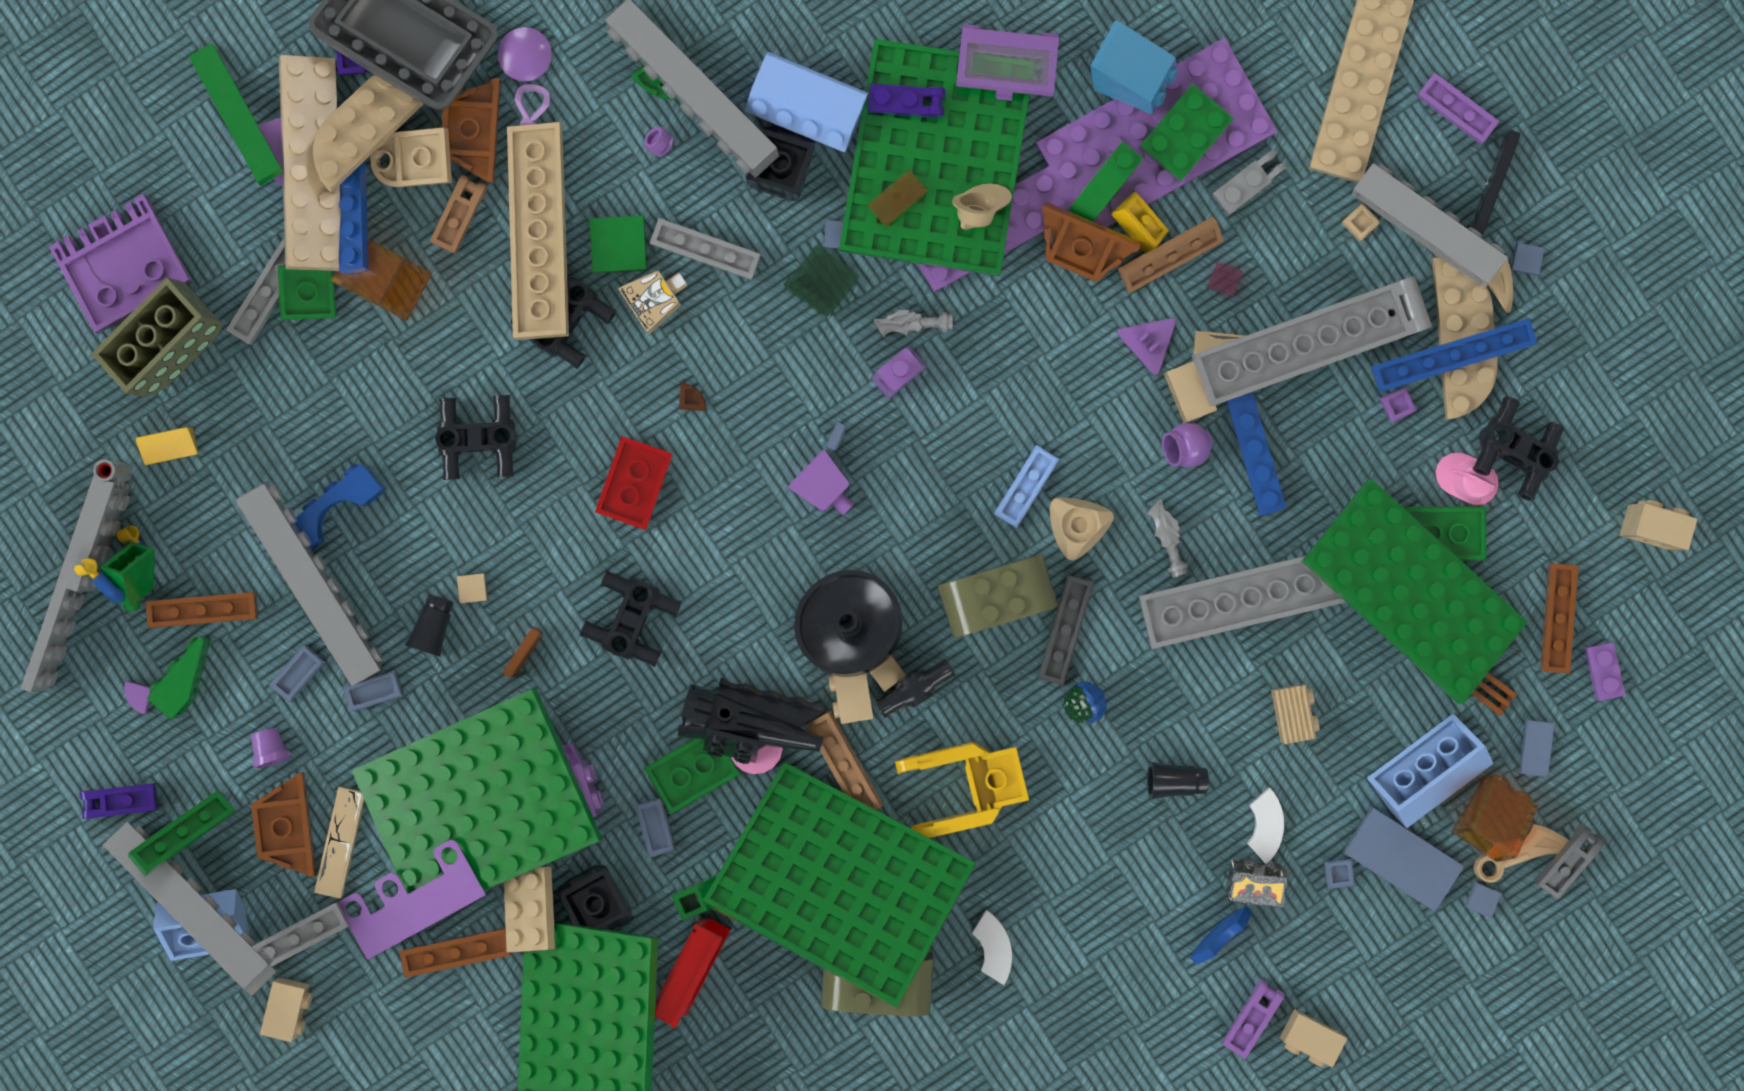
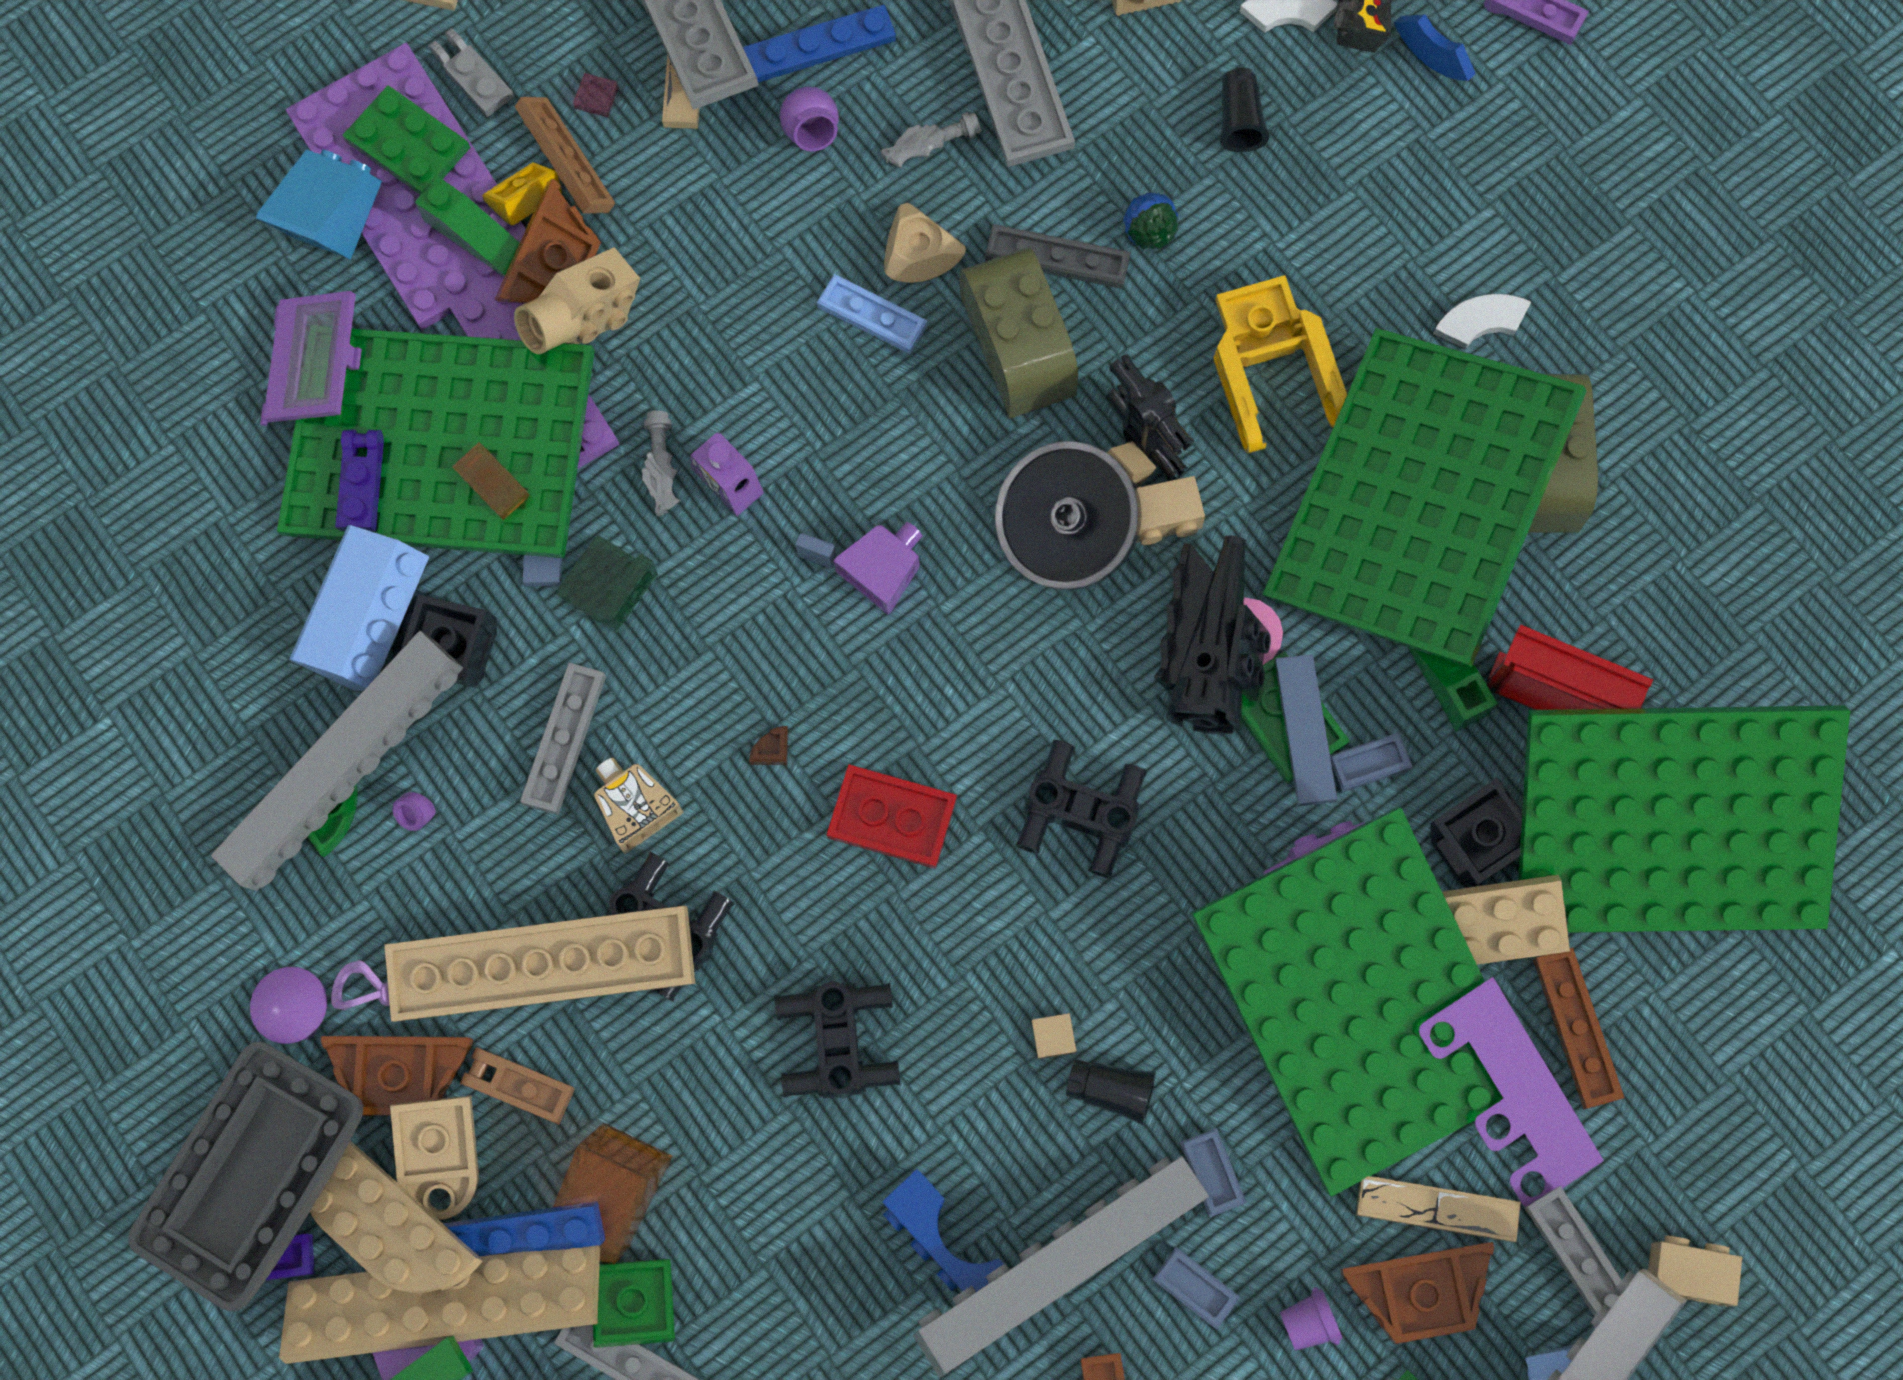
camera: 85 degrees left, 15 degrees down
(523, 652) = (1140, 955): dark orange tile -> none
(618, 244) = (558, 859): green tile -> none
(678, 783) = (1305, 730): none -> sand blue tile
(844, 761) = (1255, 516): medium nougat plate -> none
(980, 204) = (498, 368): tan piece -> none
(1031, 264) = (579, 303): none -> tan brick
(1149, 341) = (678, 179): medium lavender piece -> none
(1188, 392) = (740, 122): tan brick -> none

